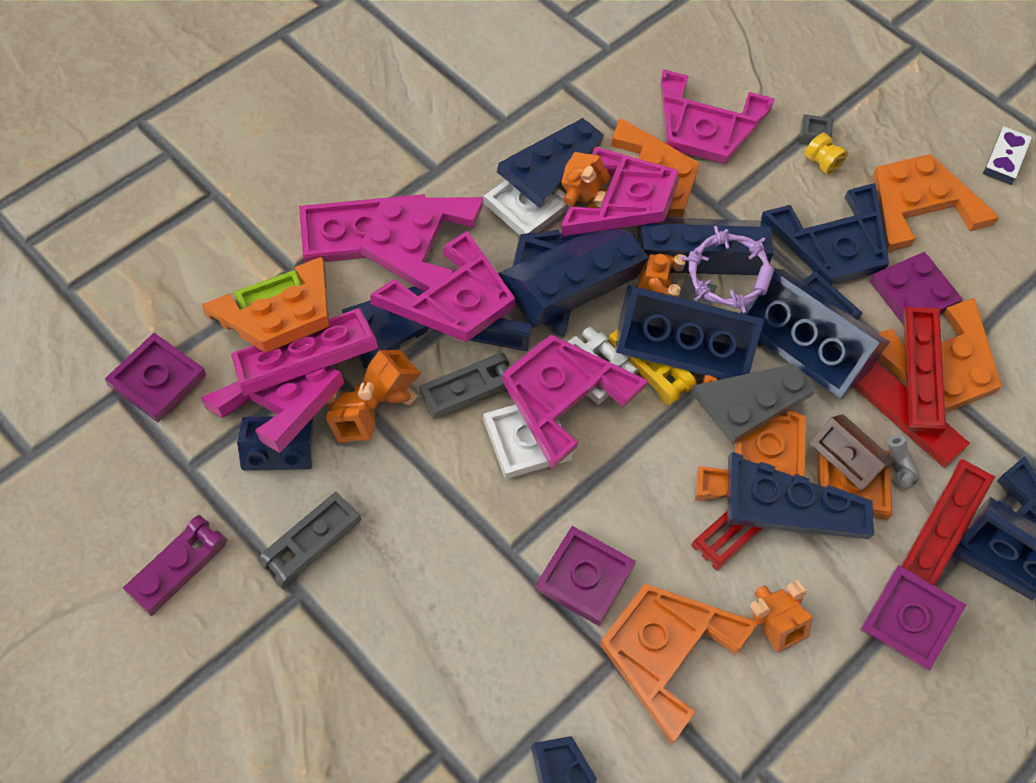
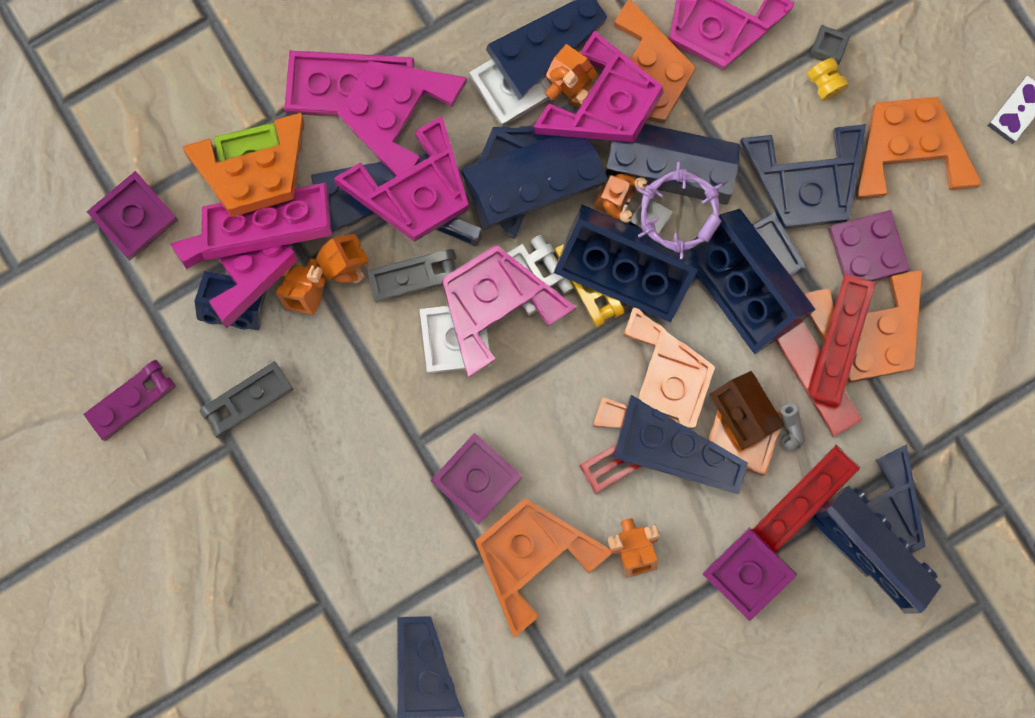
camera: 15 degrees right, 20 degrees up
(752, 399) = (670, 342): dark grey wing -> none

